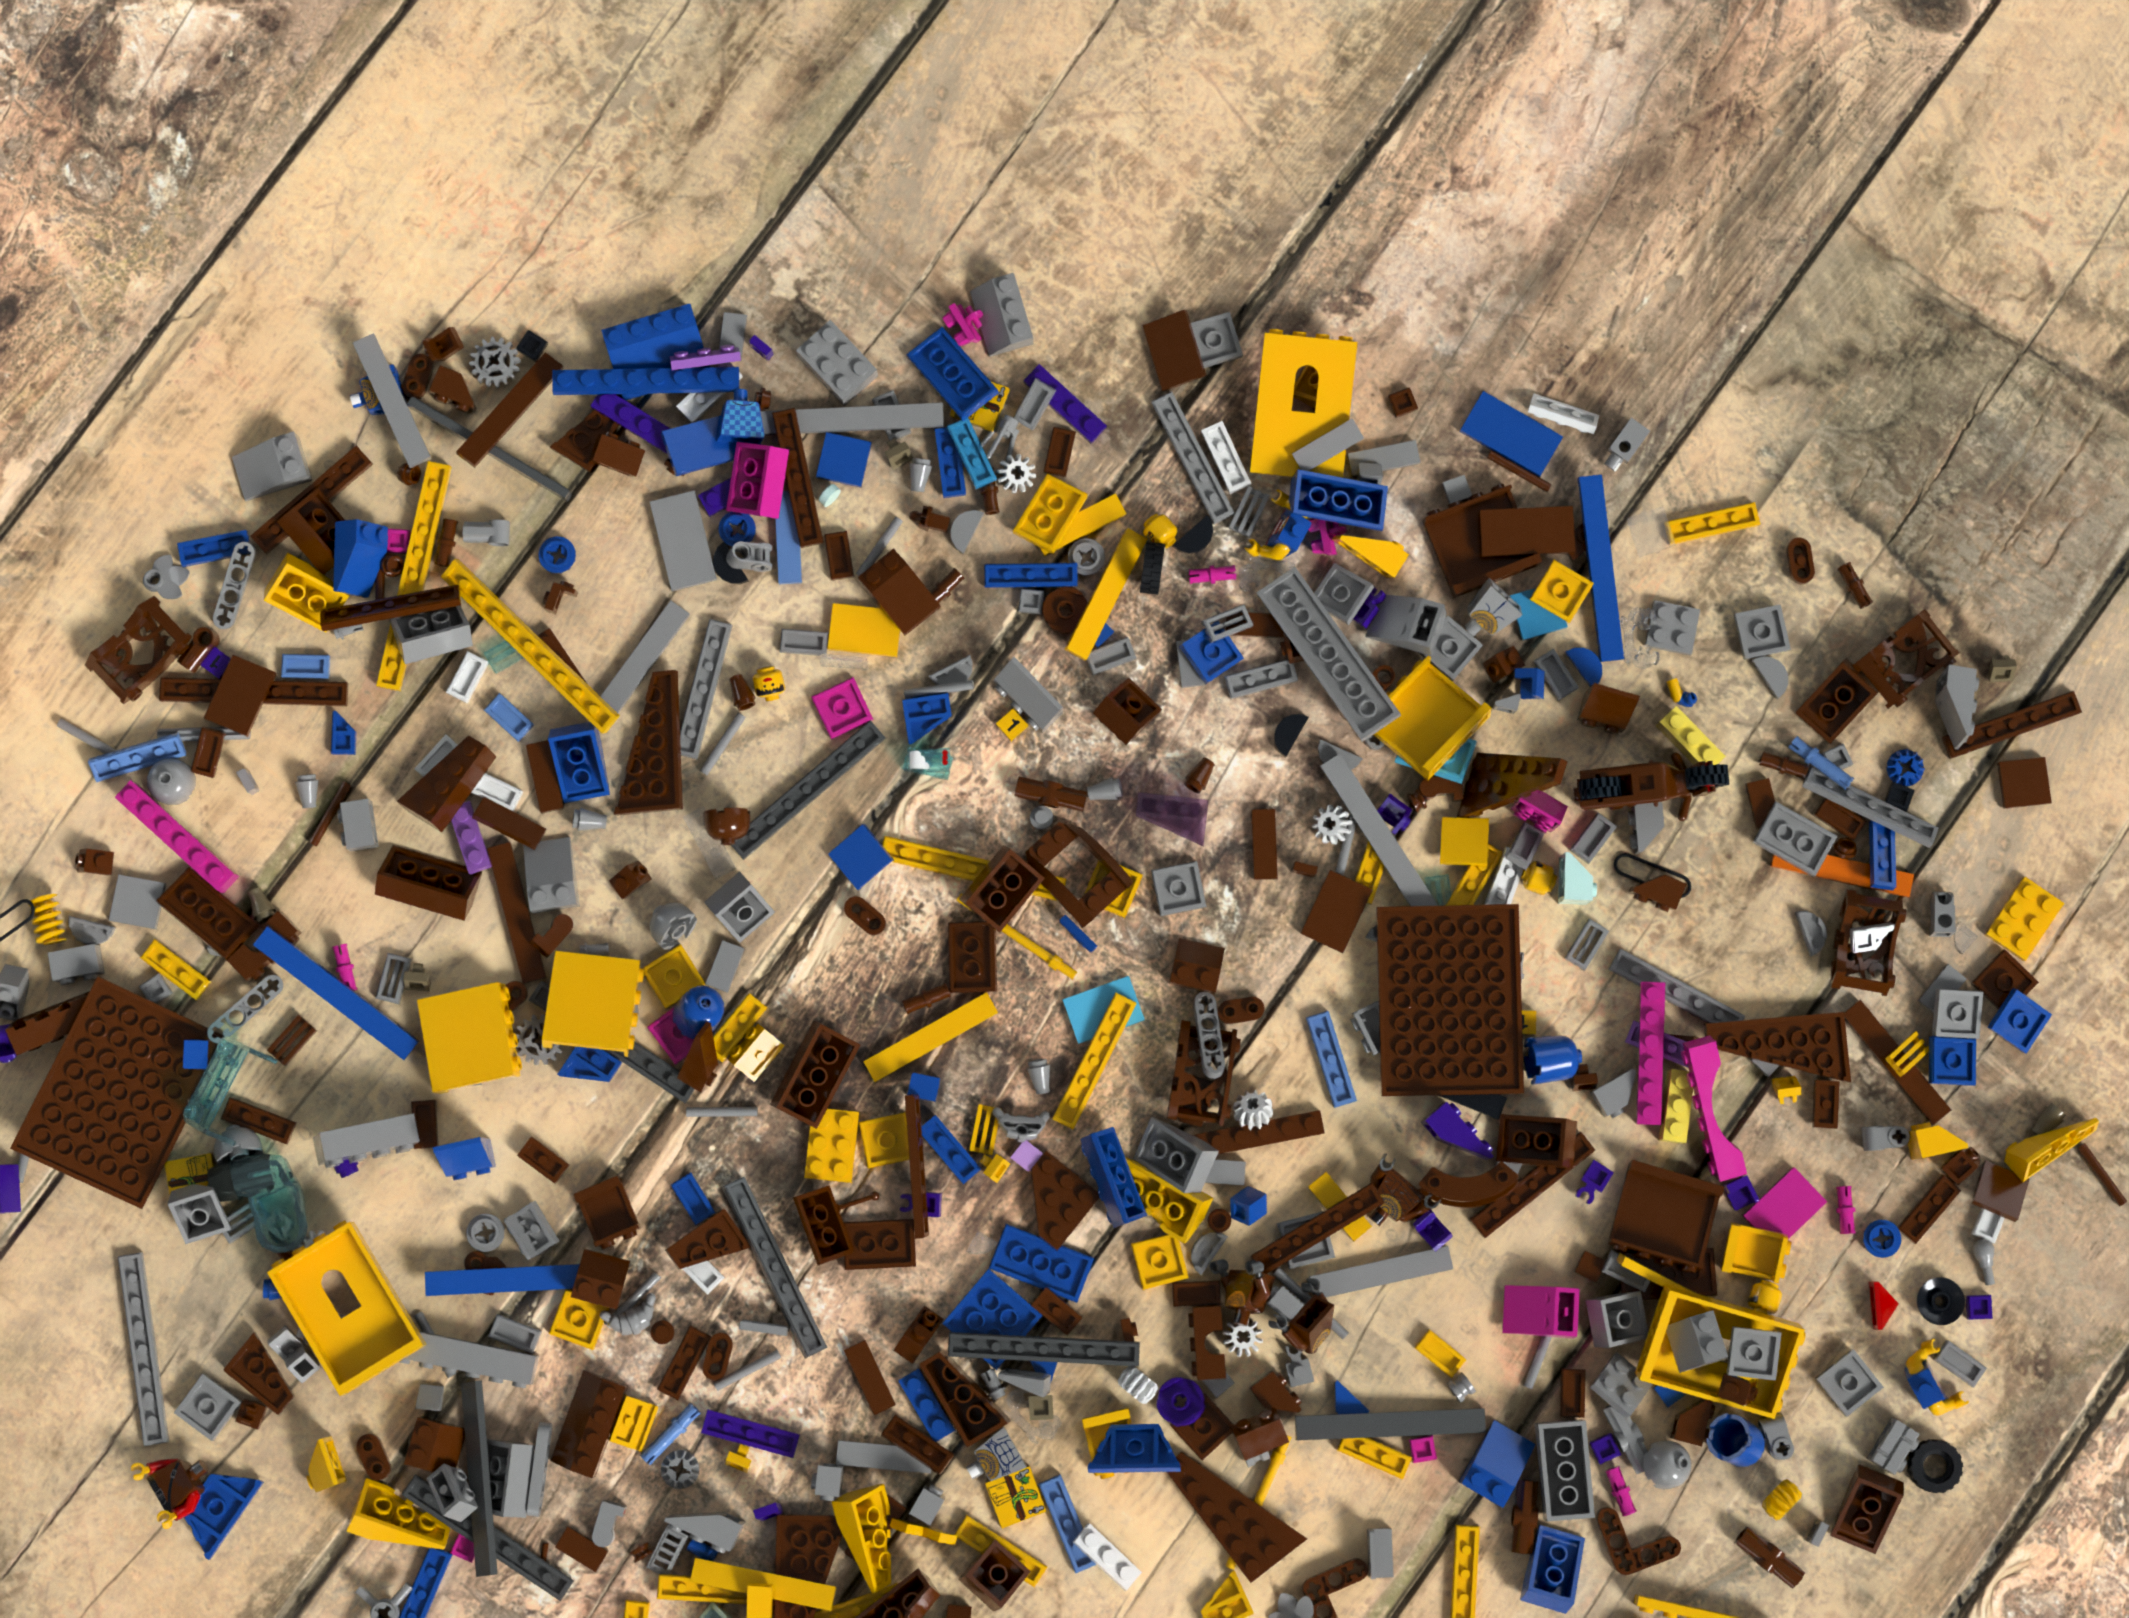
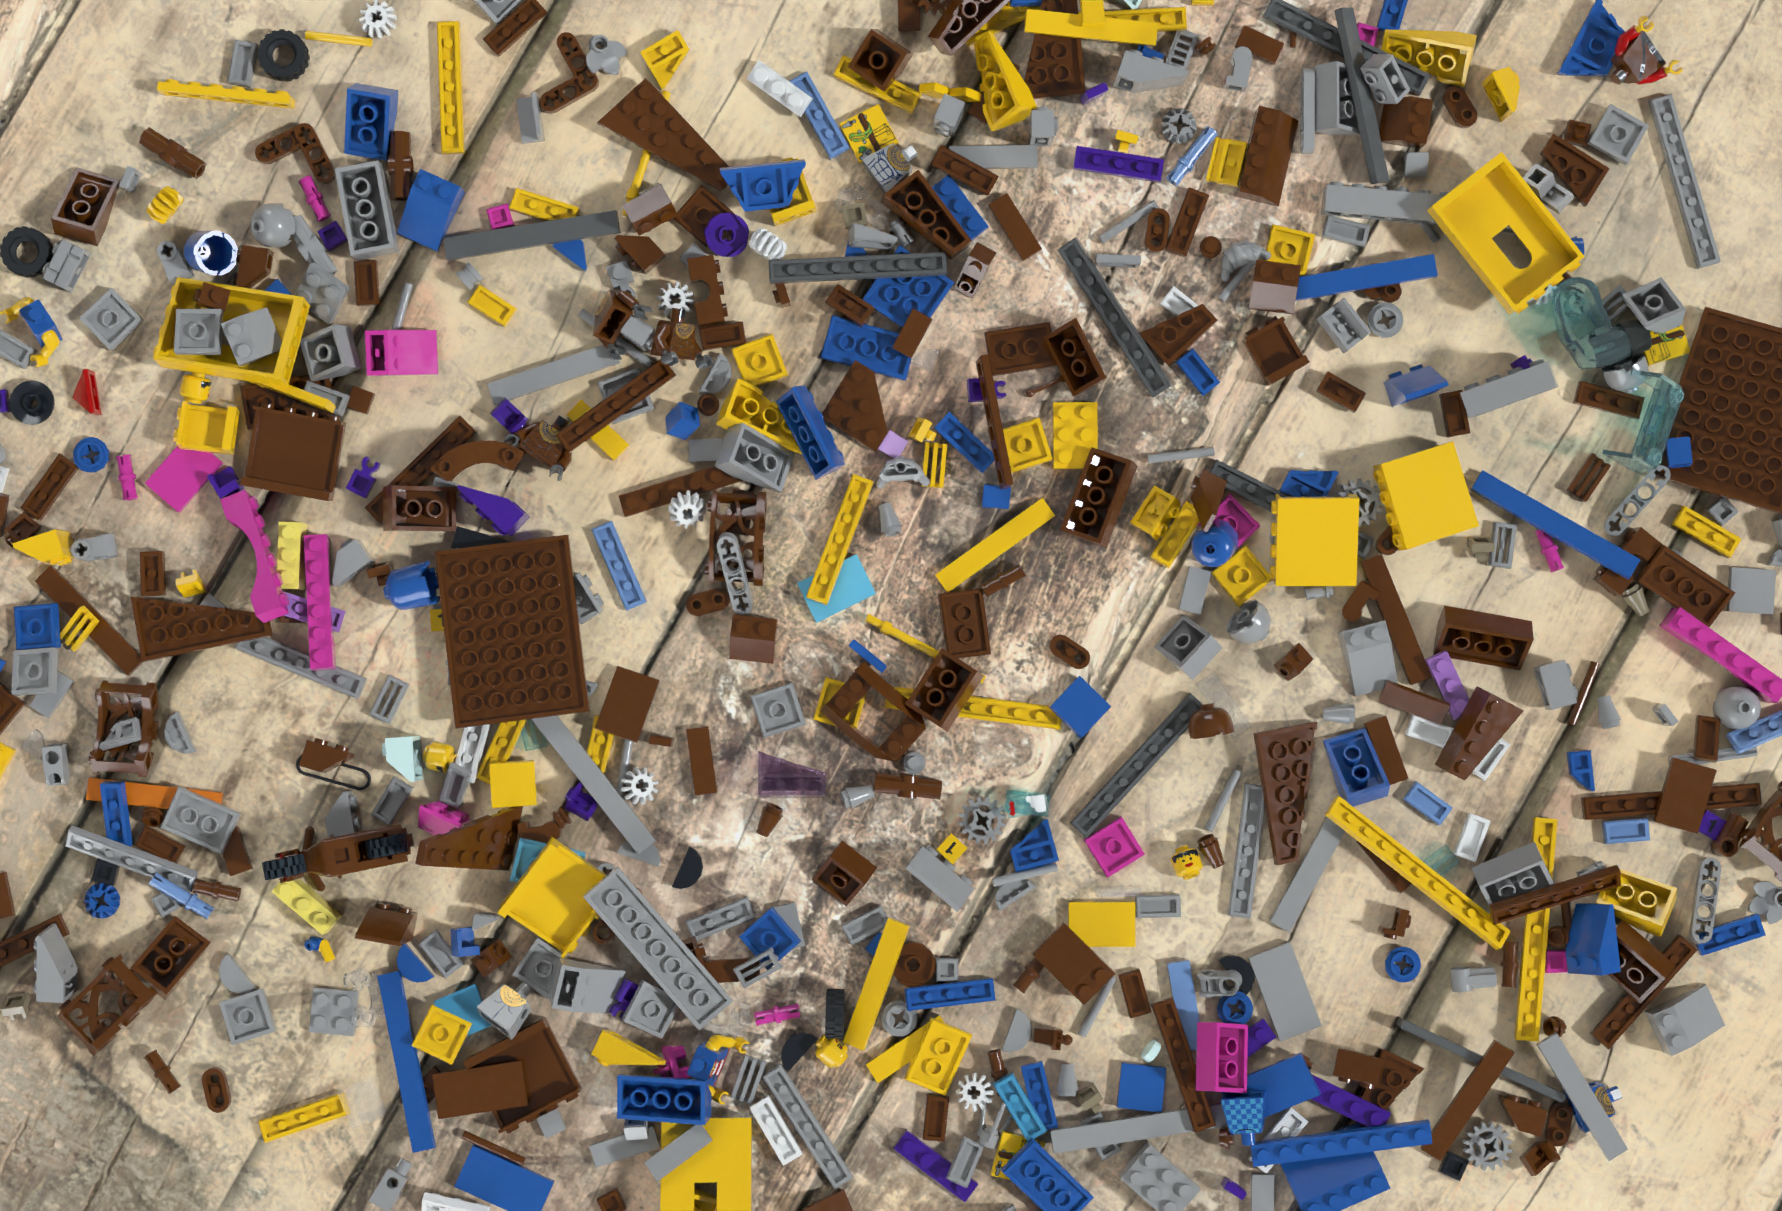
camera: 170 degrees right, 5 degrees up
(705, 357) = (1287, 1172): medium lavender plate -> none
(971, 738) = (991, 814): none -> light grey gear
(993, 1272) = (912, 333): none -> reddish brown tile

